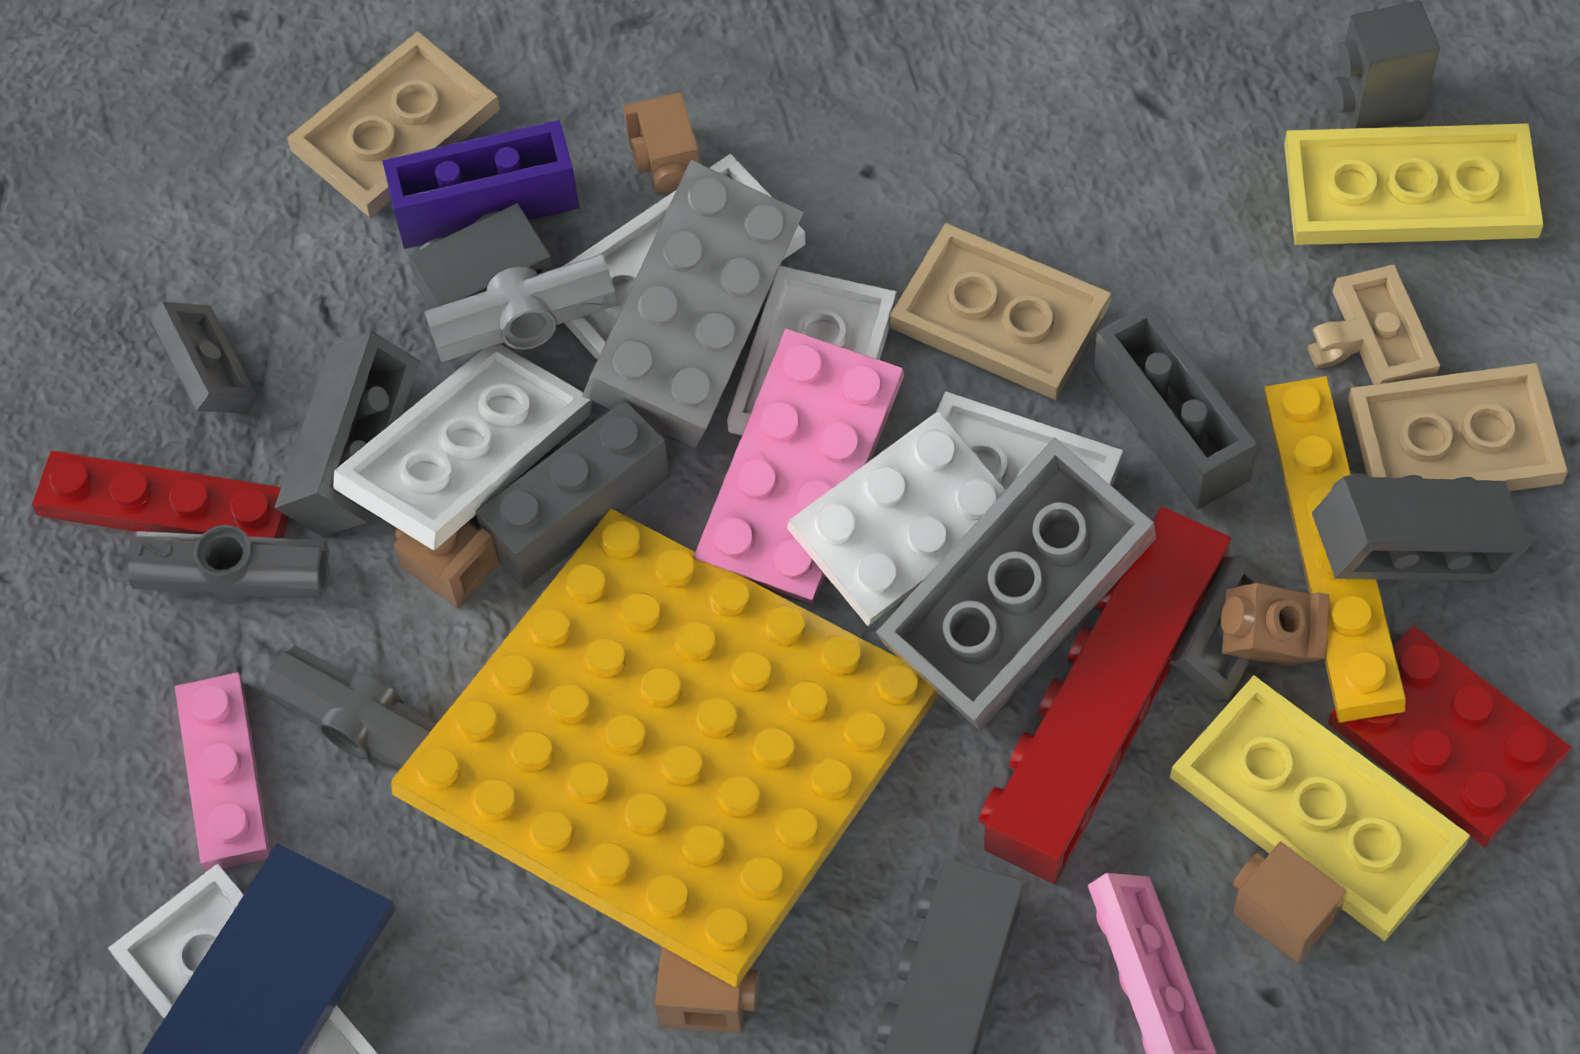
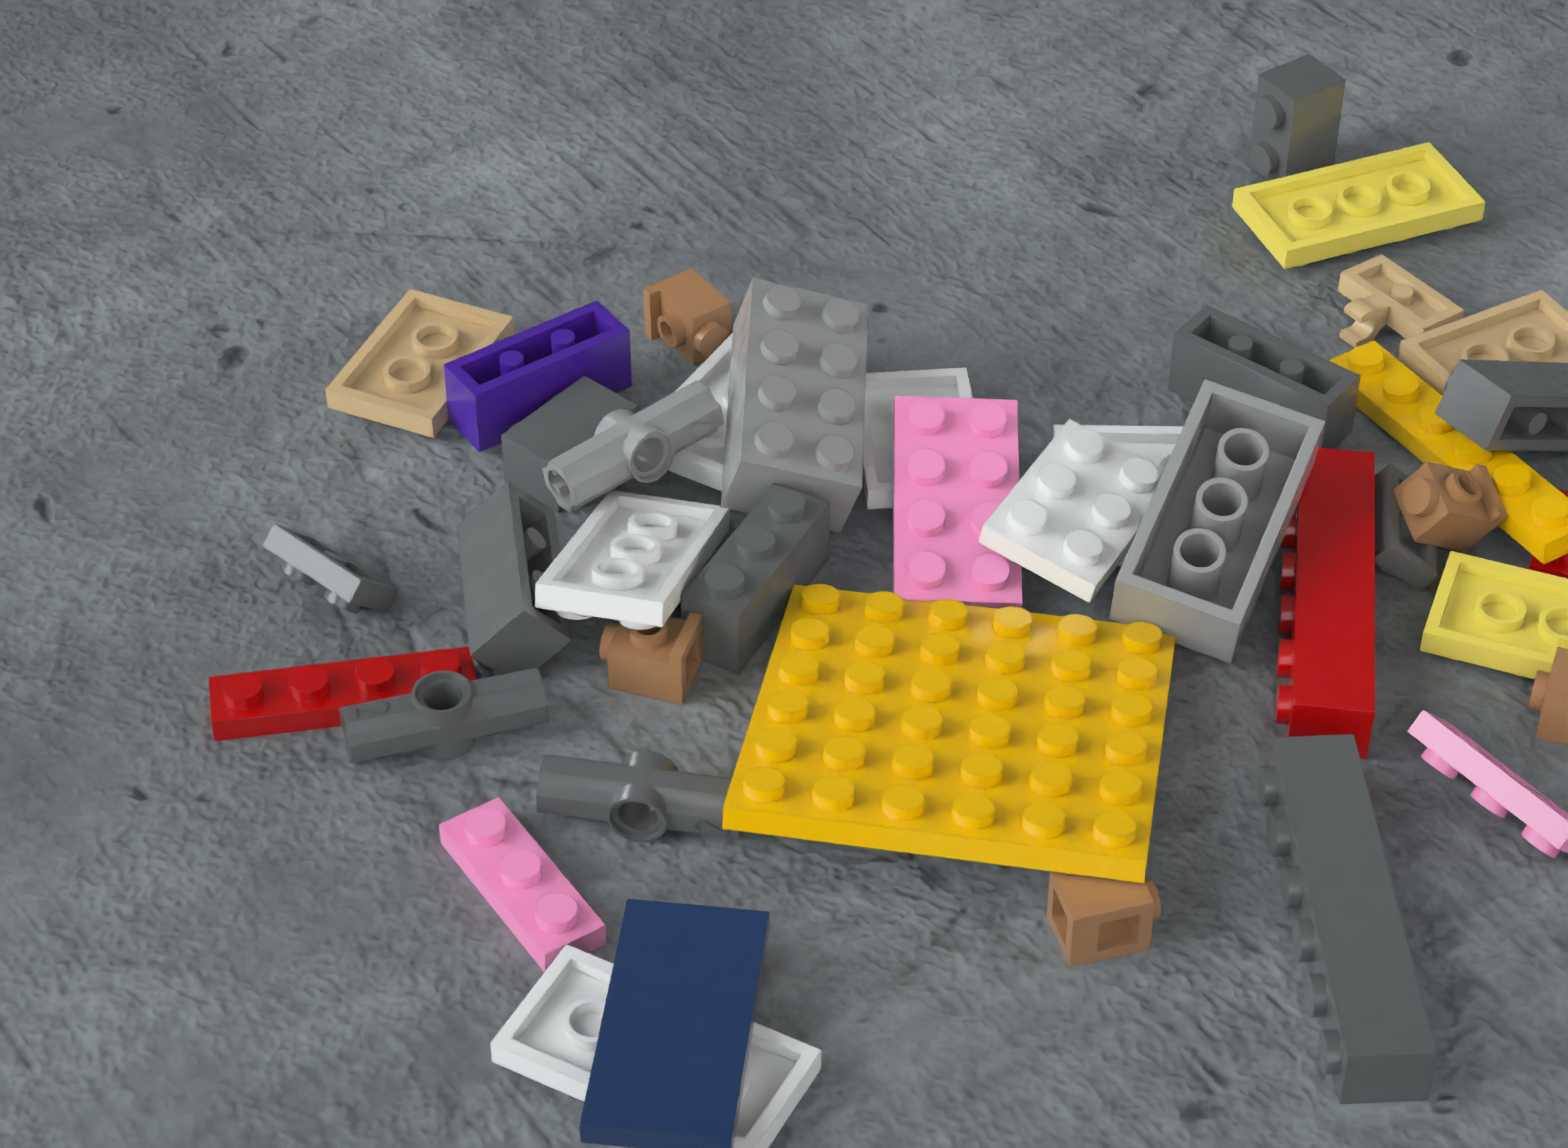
camera: 25 degrees left, 20 degrees down
(1000, 311) = (1064, 364): tan plate -> none

